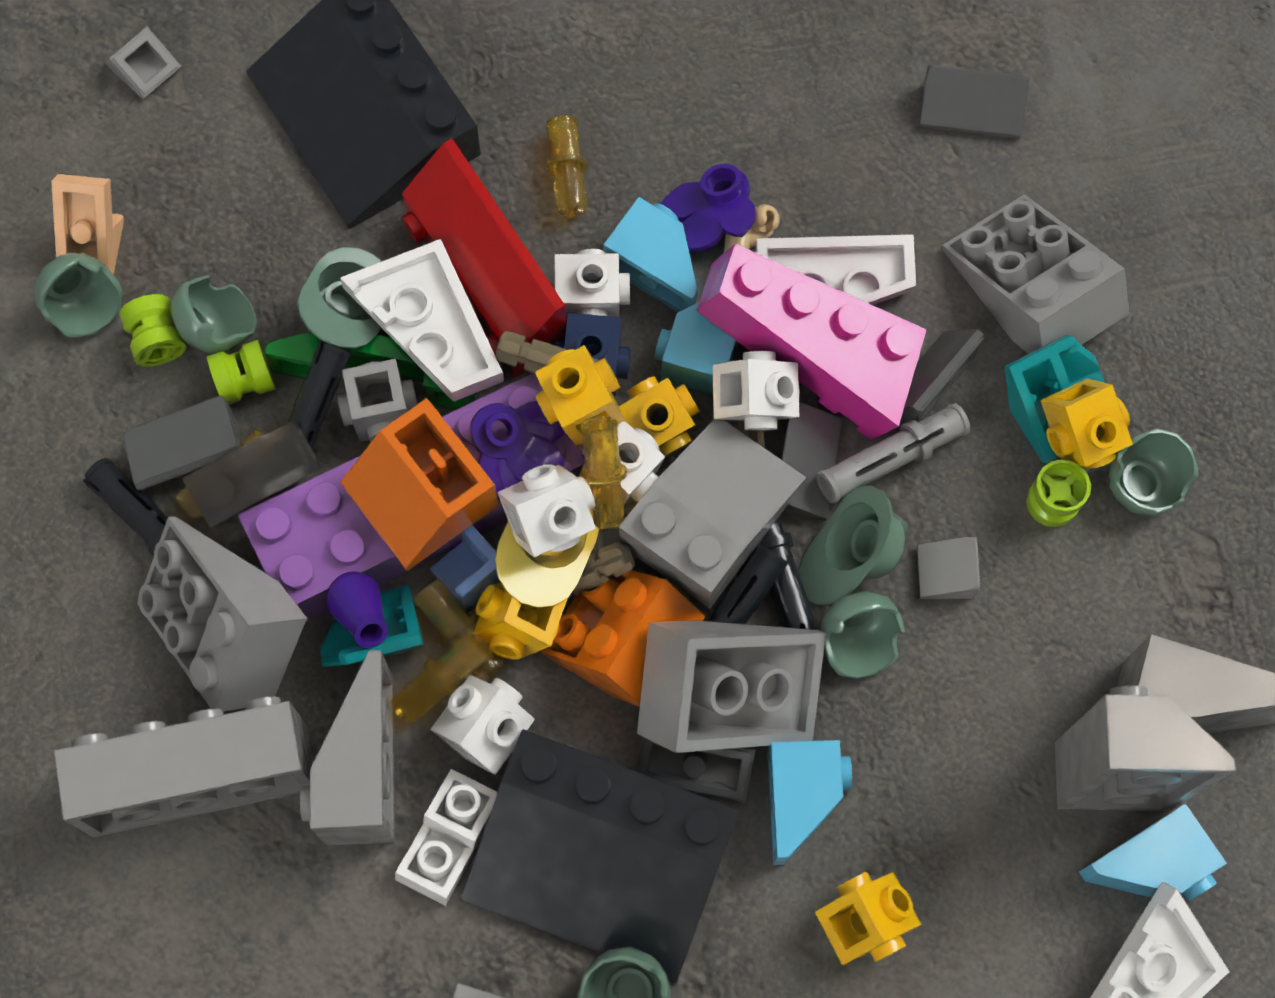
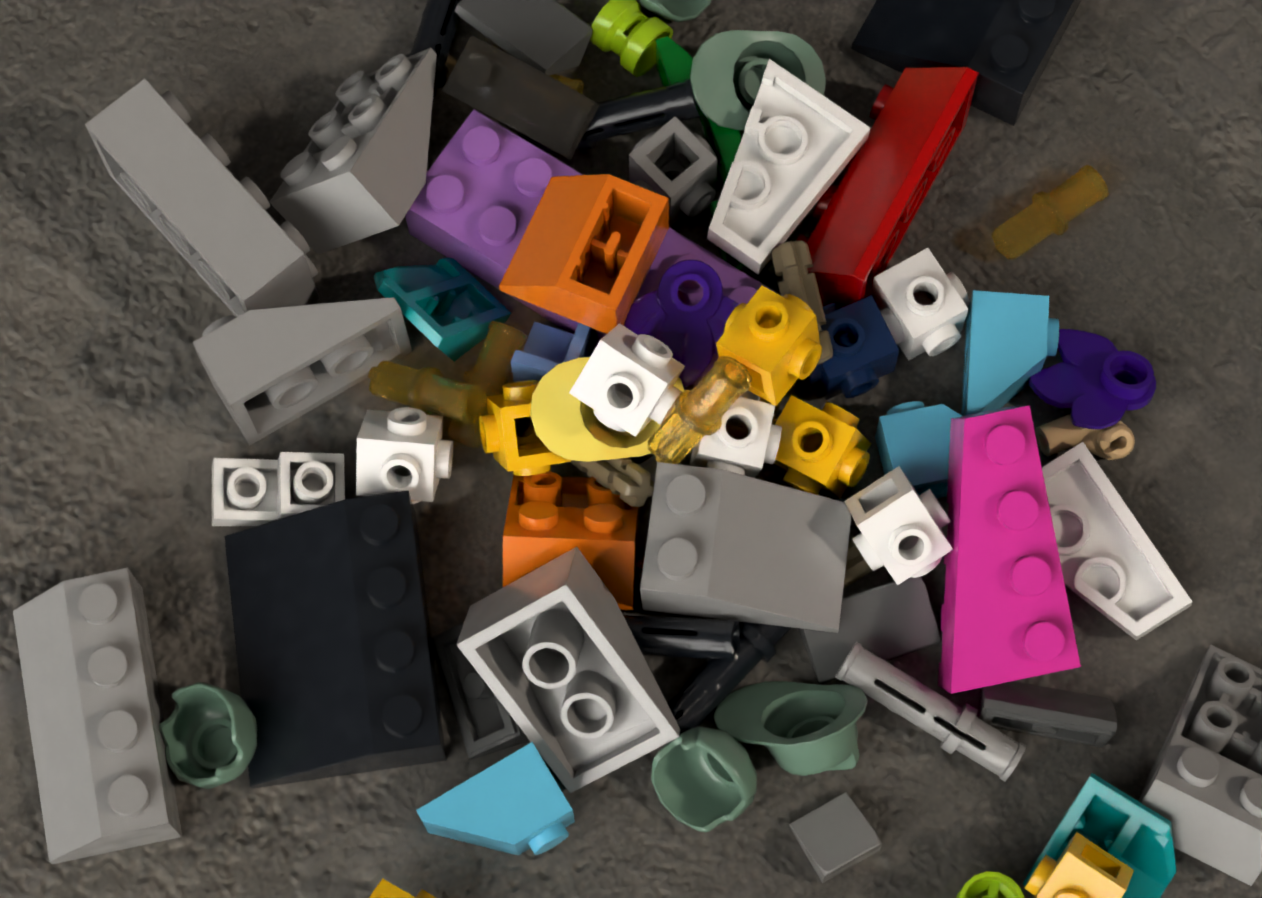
camera: 65 degrees right, 0 degrees up
(358, 607) = (443, 268): dark purple cone -> none

